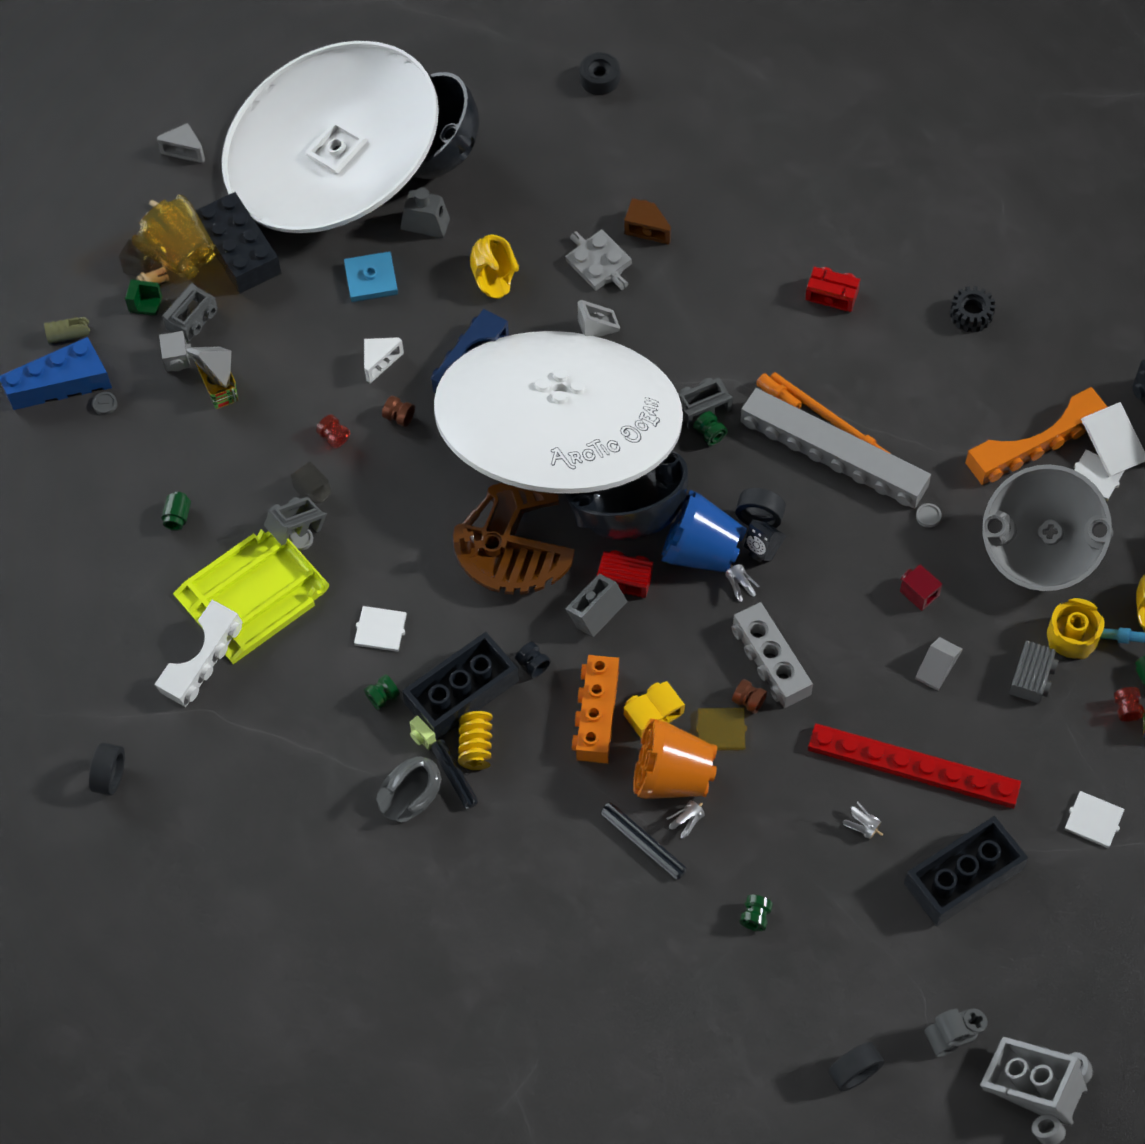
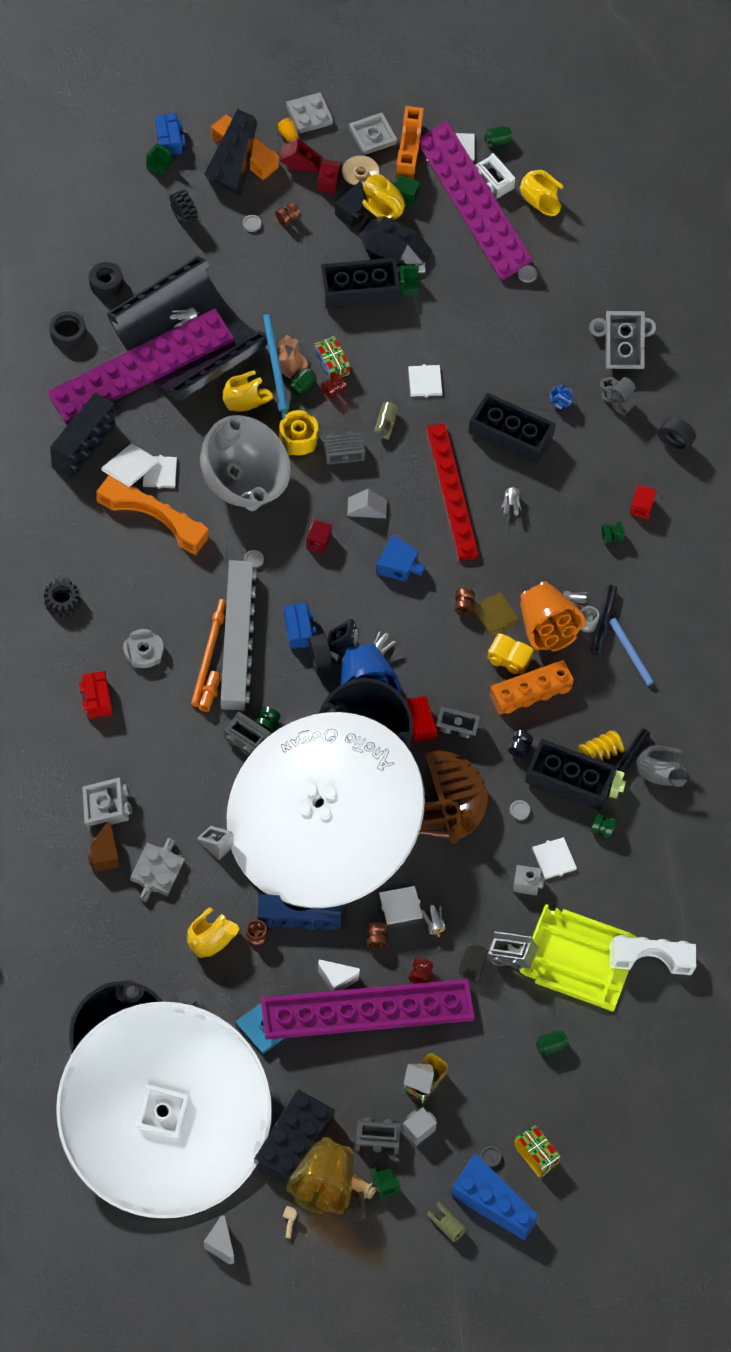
camera: 125 degrees left, 0 degrees up
(75, 437) = (537, 1151): none -> piece
(322, 363) = (366, 1009): none -> magenta plate
(368, 581) = (527, 880): none -> light grey brick
(375, 469) = (437, 924): none -> flat silver piece
(422, 456) = (400, 905): none -> white piece
(458, 624) = (519, 810): none -> light grey piece
(470, 306) = (256, 928): none -> copper wheel
(584, 848) = (631, 651): none -> medium blue bar
(651, 812) = (591, 618): none -> light grey wheel
(698, 244) = (106, 802): none -> light grey plate
(757, 620) = (438, 578): light grey brick -> none
(781, 974) = (643, 501): none -> red brick
(812, 512) = (298, 625): none -> blue brick
(844, 655) = (399, 560): none -> blue torso
(867, 368) = (143, 659): none -> light grey plate
(987, 960) = (561, 396): none -> blue gear
(1055, 742) = (386, 419): none -> olive hinge

